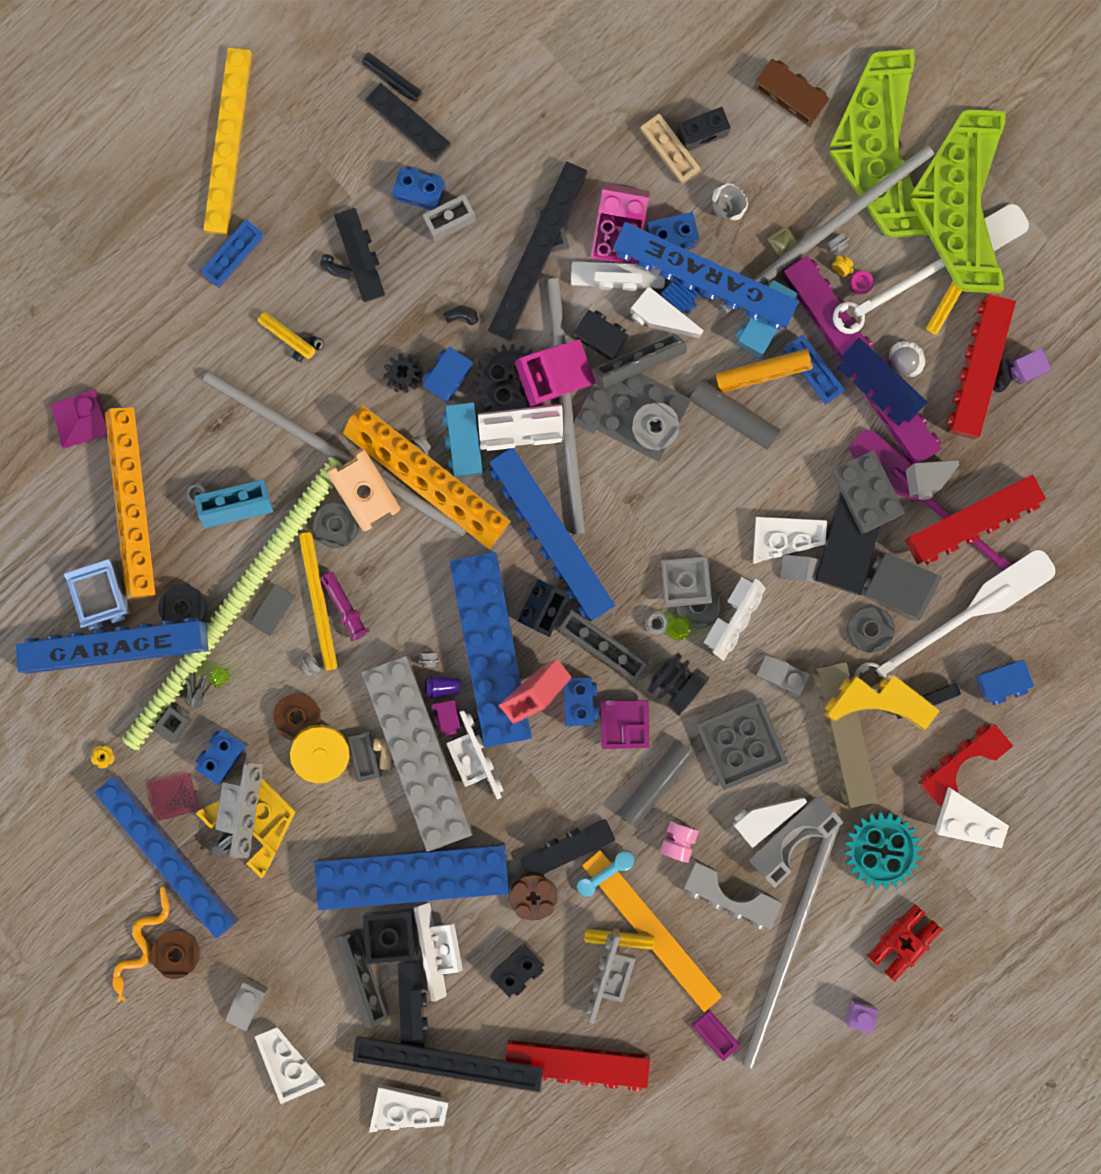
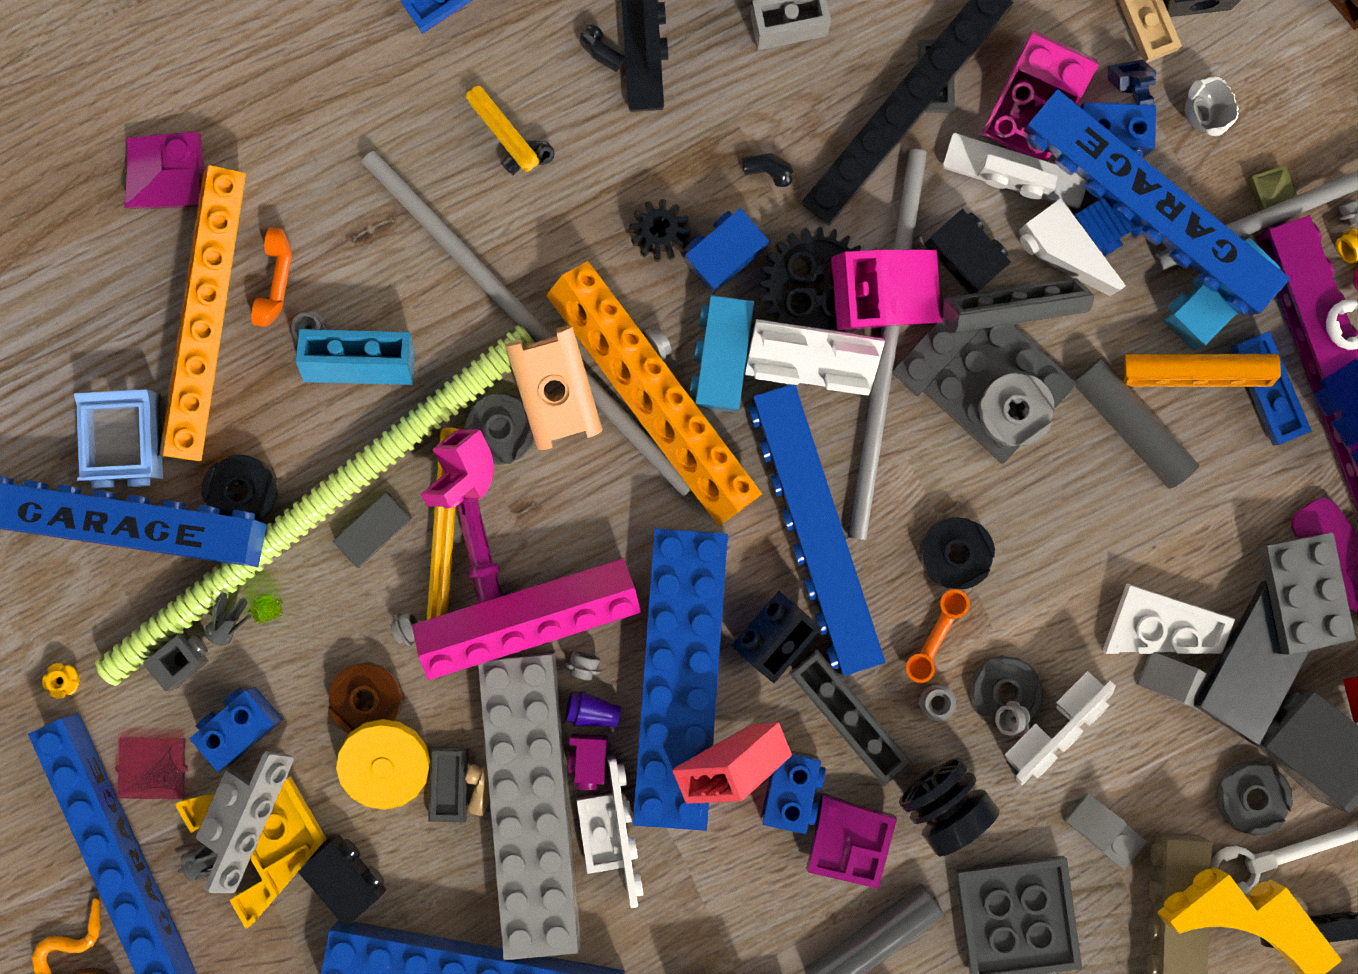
camera: 10 degrees right, 0 degrees up
(169, 488) = (267, 310): none -> orange bar
(314, 832) = (343, 880): none -> black brick
(322, 555) = (466, 468): none -> dark pink brick
(384, 638) = (525, 619): none -> dark pink brick
(650, 559) = (953, 605): none -> orange bar
(657, 526) = (977, 559): none -> black plate
(676, 197) = (1134, 78): none -> dark blue plate
(678, 628) = (969, 719): clear neon green tile -> none
(686, 581) = (999, 654): light grey tile -> none
(704, 619) = (1006, 719): none -> light grey plate

